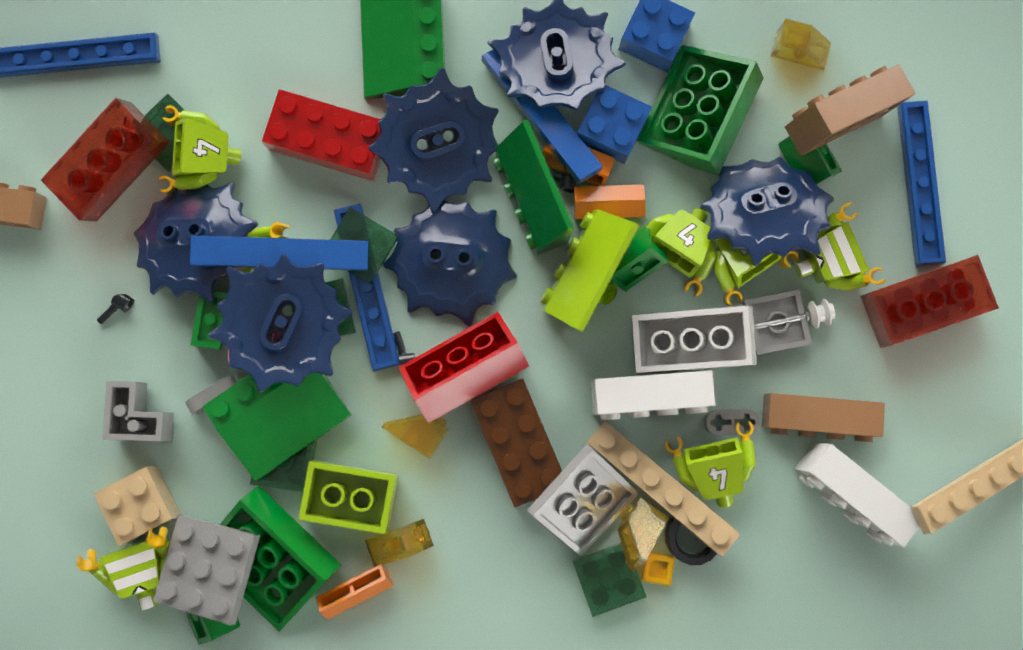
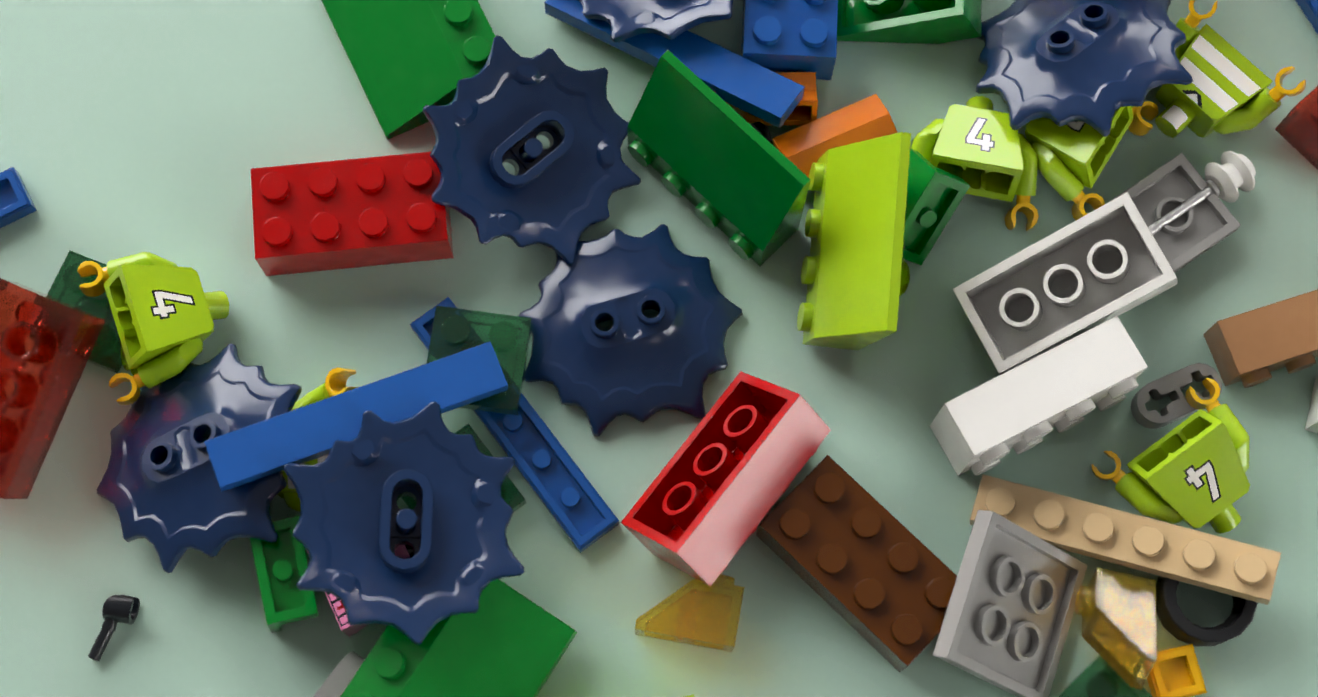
camera: 20 degrees left, 10 degrees down
(403, 356) = (619, 507): black hand -> none

